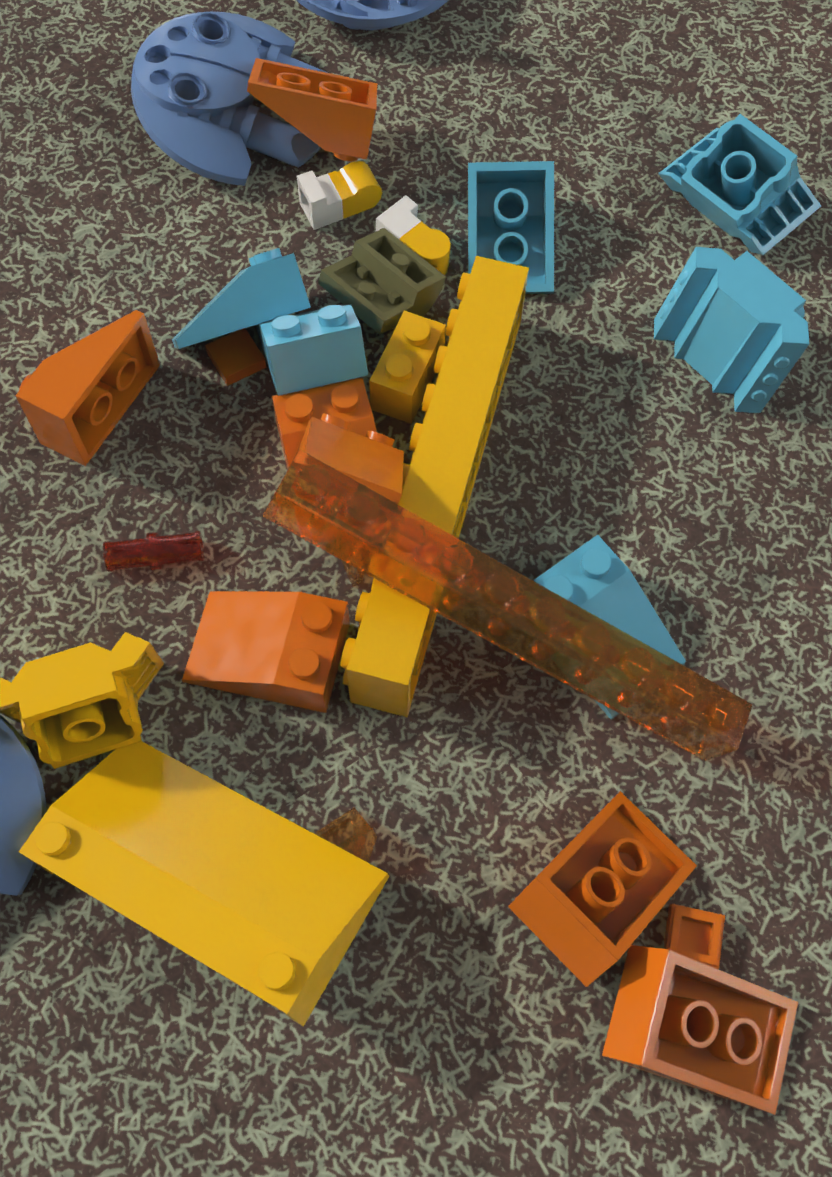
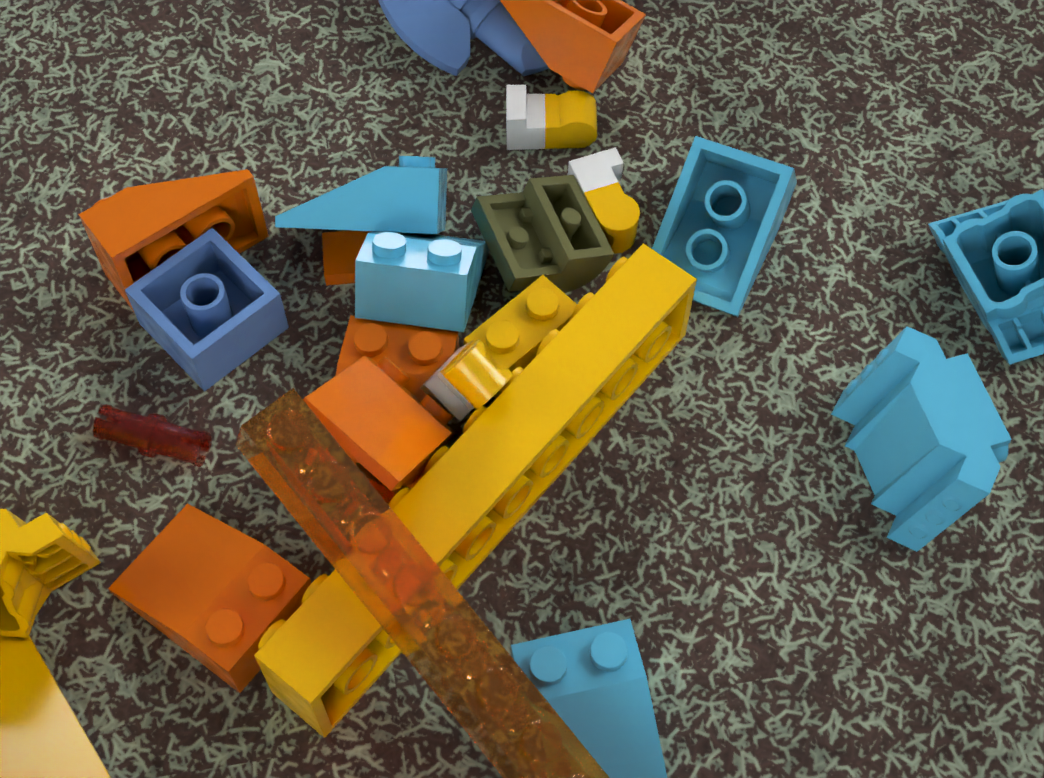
camera: 25 degrees right, 5 degrees down
(150, 435) = (208, 308): none -> medium blue brick
(396, 405) = (466, 380): none -> yellow leg

